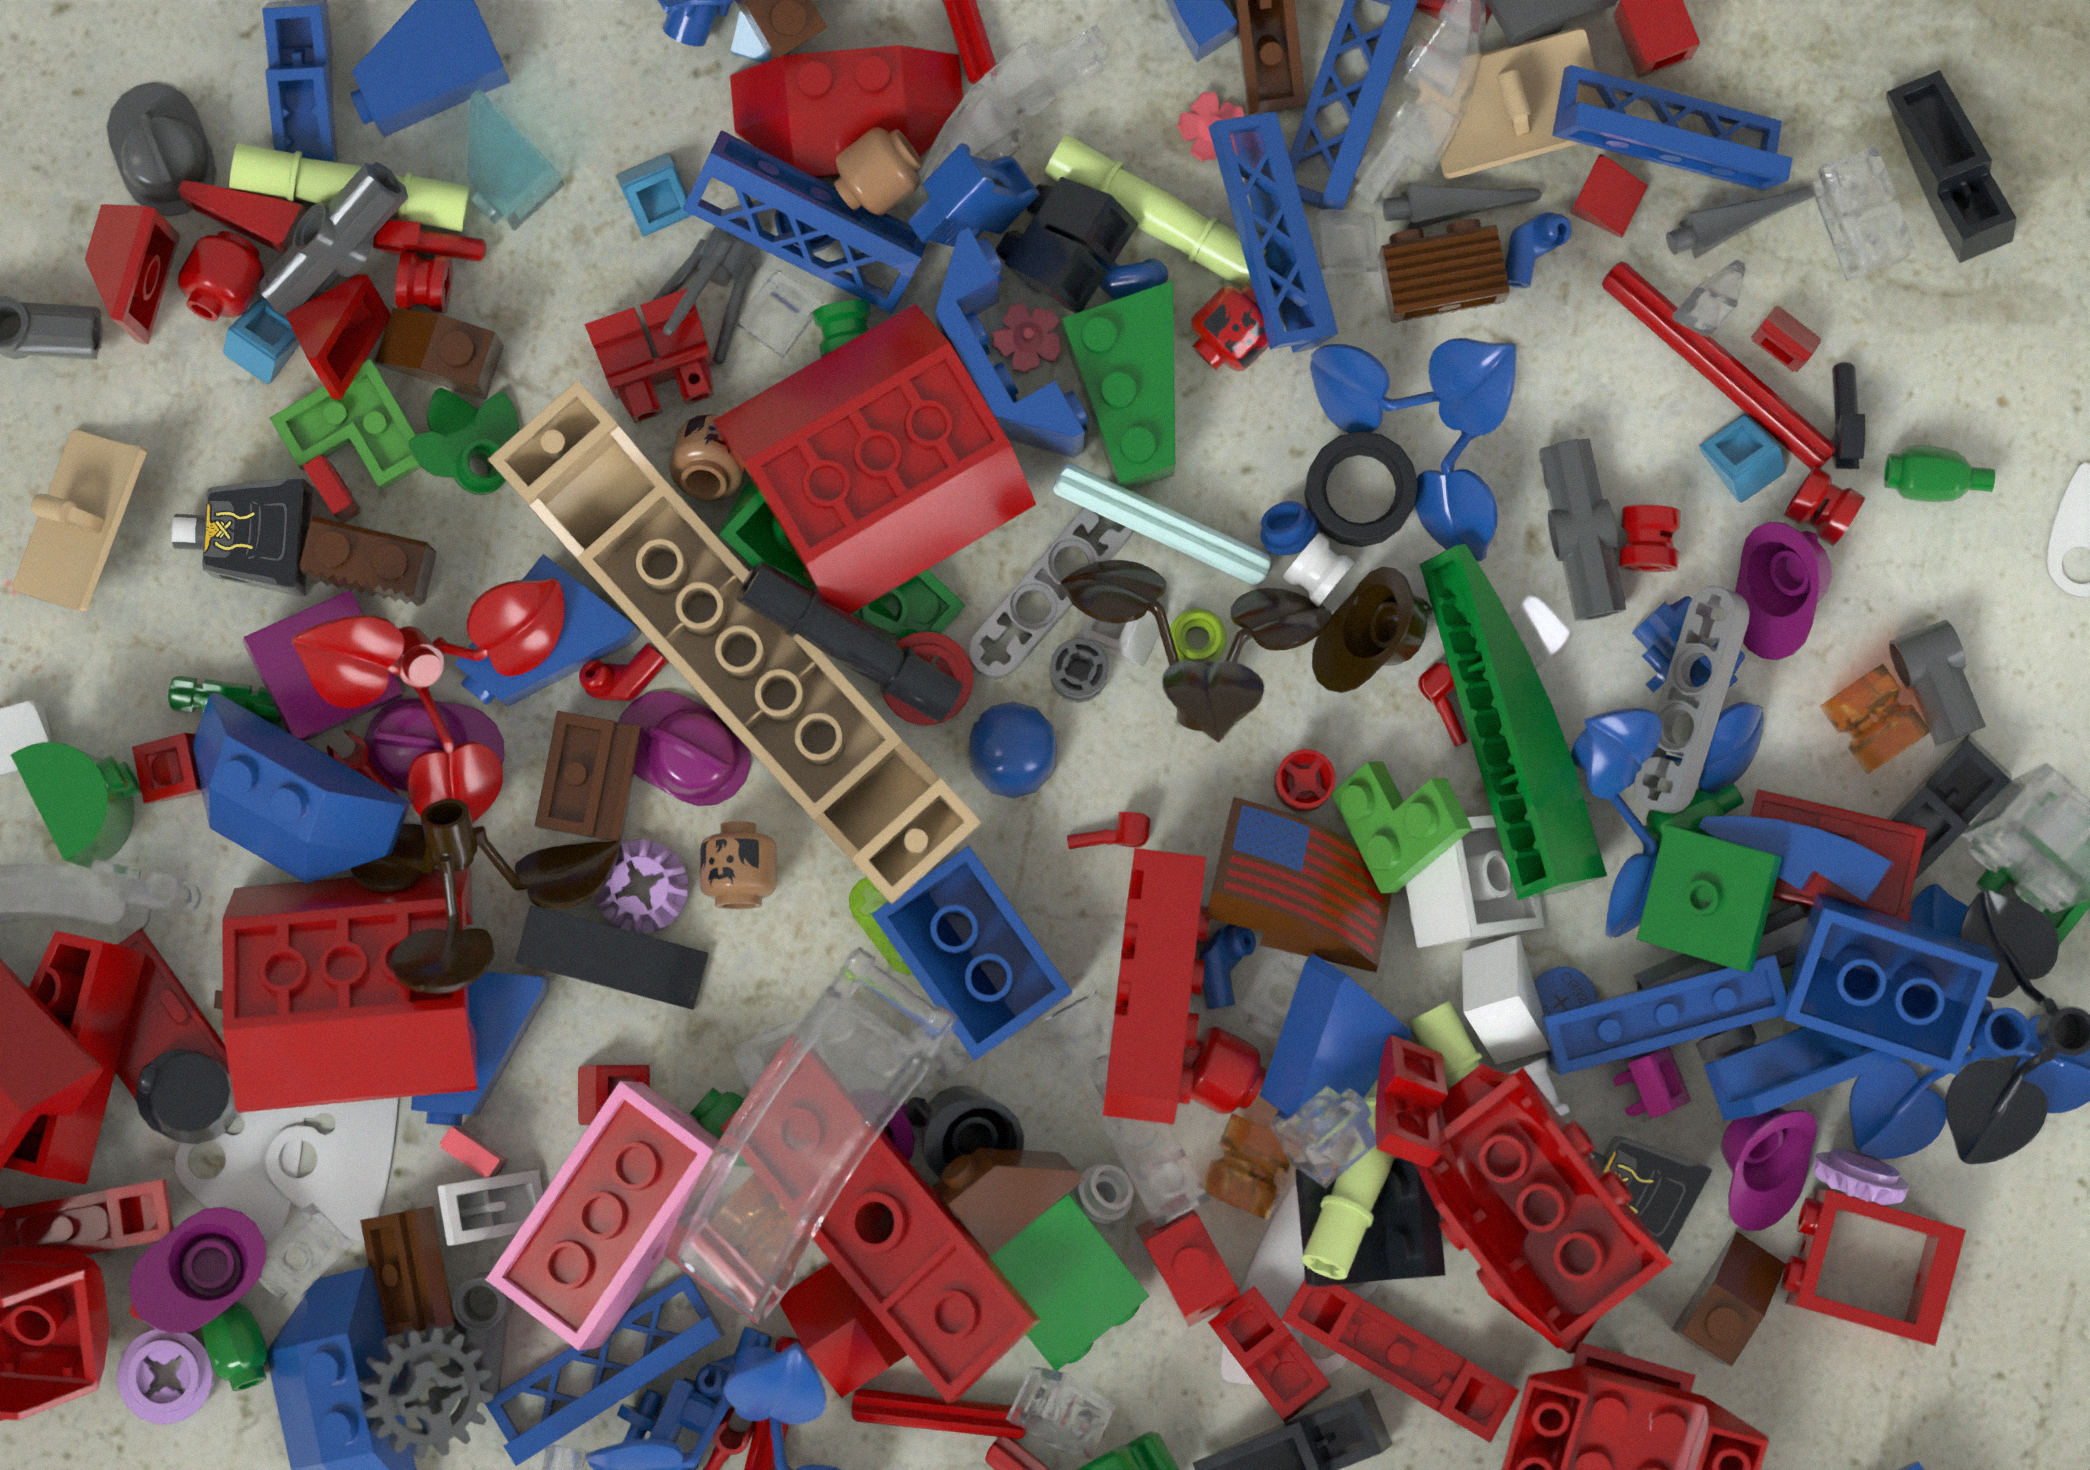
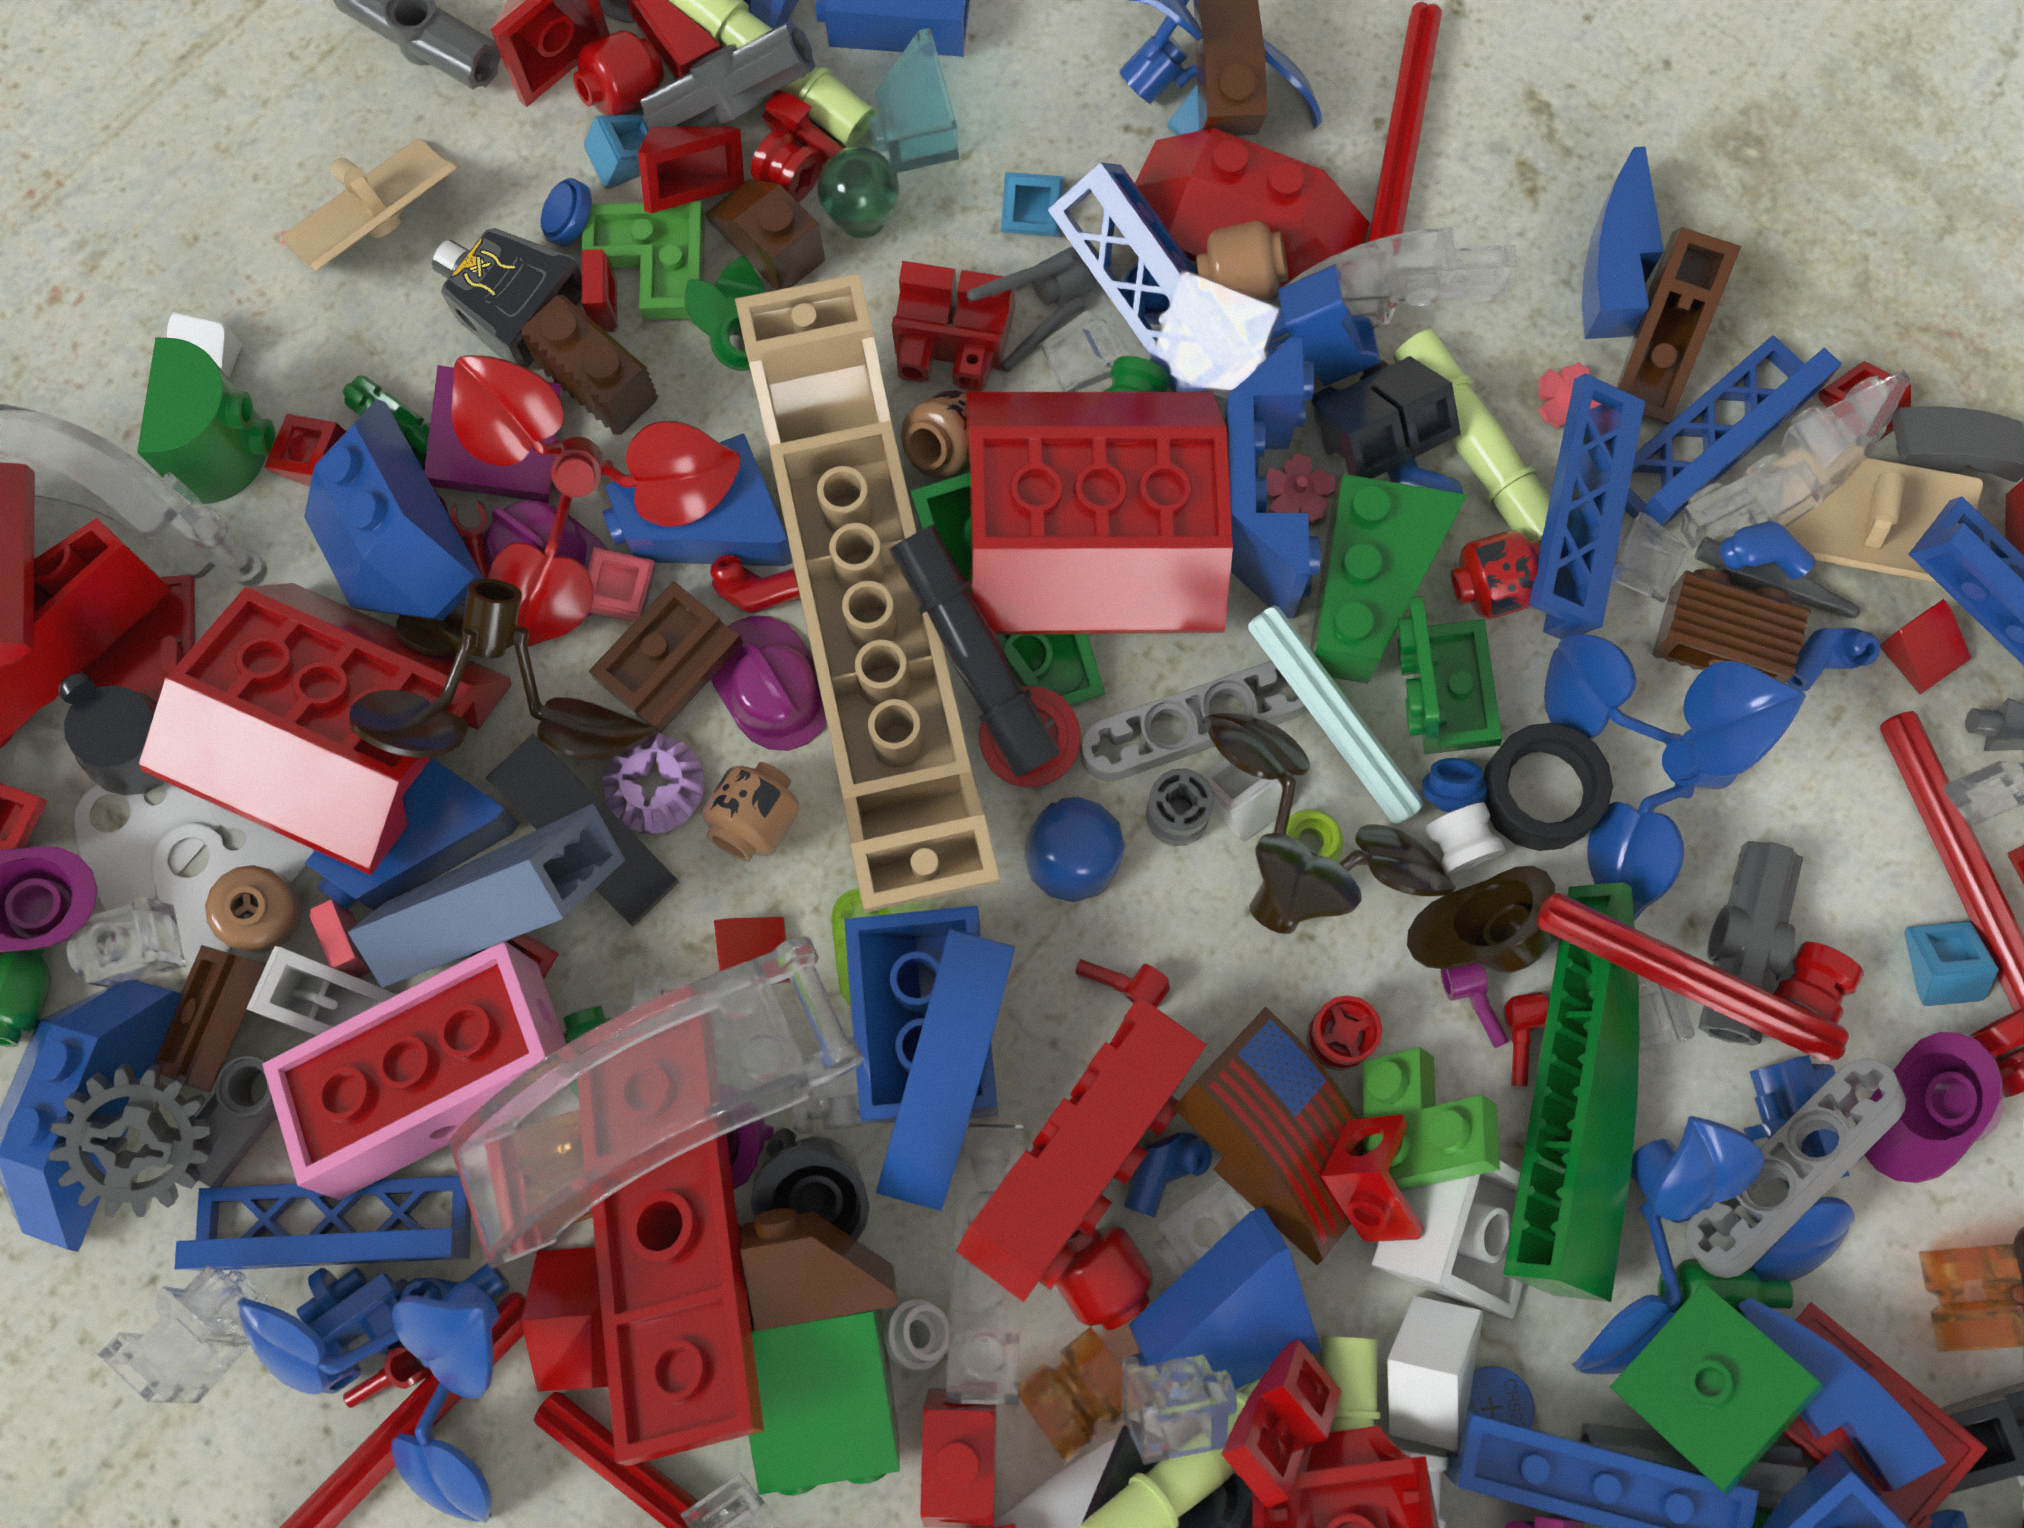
camera: 30 degrees right, 10 degrees down
(256, 431) = (566, 212): none -> blue piece
(375, 1151) = (273, 919): none -> medium nougat head
(505, 276) = (858, 190): none -> clear green piece
(510, 735) = (620, 584): none -> coral tile
(581, 1055) = (489, 898): none -> sand blue slope
(802, 975) = (747, 939): none -> red slope
(889, 251) = (1213, 334): none -> clear piece
(1017, 984) = (946, 1070): none -> blue slope
(1240, 444) = (1452, 683): none -> green bracket
(1379, 894) = (1364, 1184): none -> red bracket
(1385, 684) = (1473, 983): none -> magenta hand
(1435, 188) = (1766, 544): none -> blue arm
(1545, 594) = (1692, 977): none -> red axle

